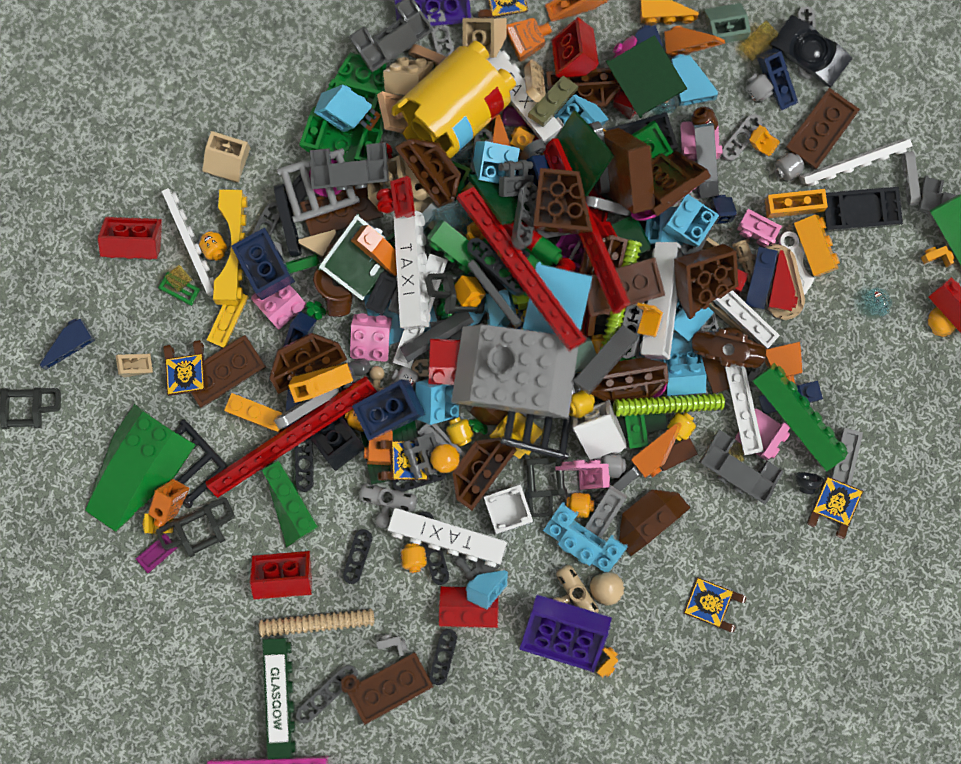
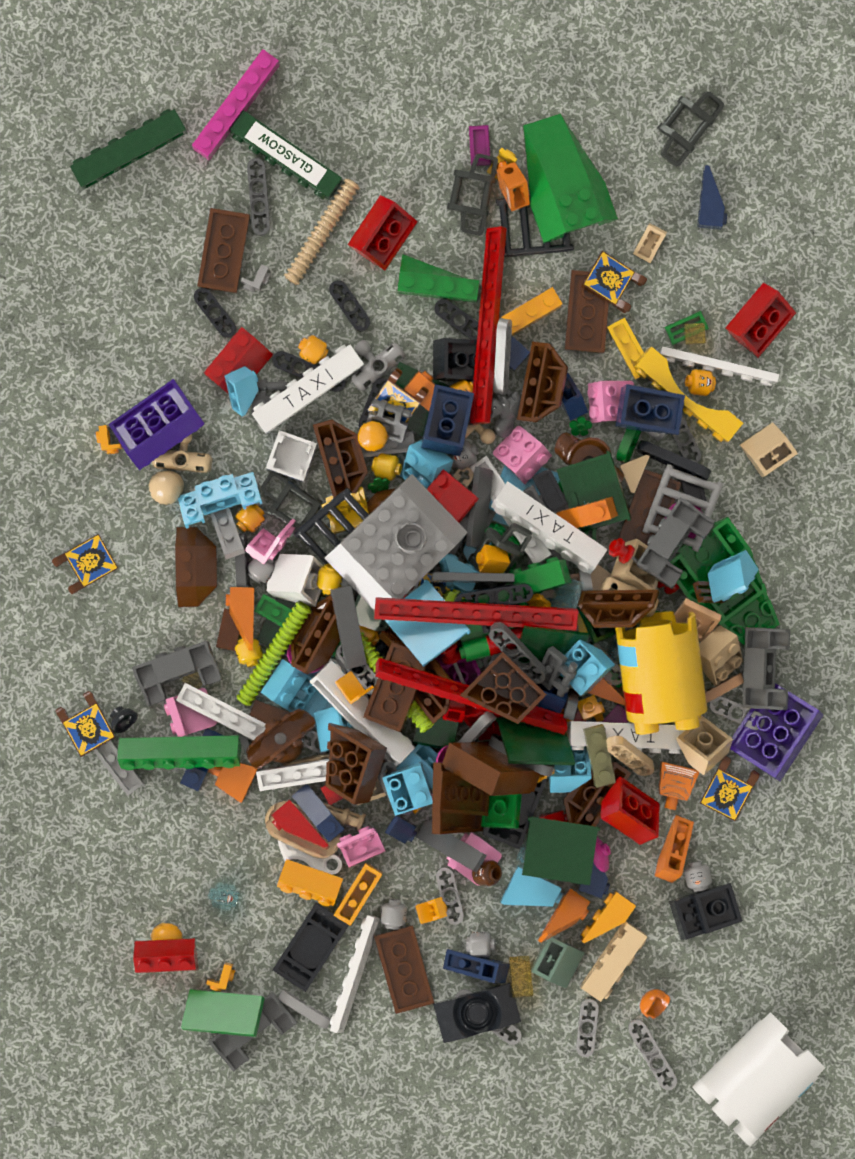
camera: 125 degrees right, 5 degrees up
(319, 382) = (513, 381): light orange slope -> none
(345, 684) = (256, 220): reddish brown plate -> none
(402, 197) = (612, 564): red plate -> none

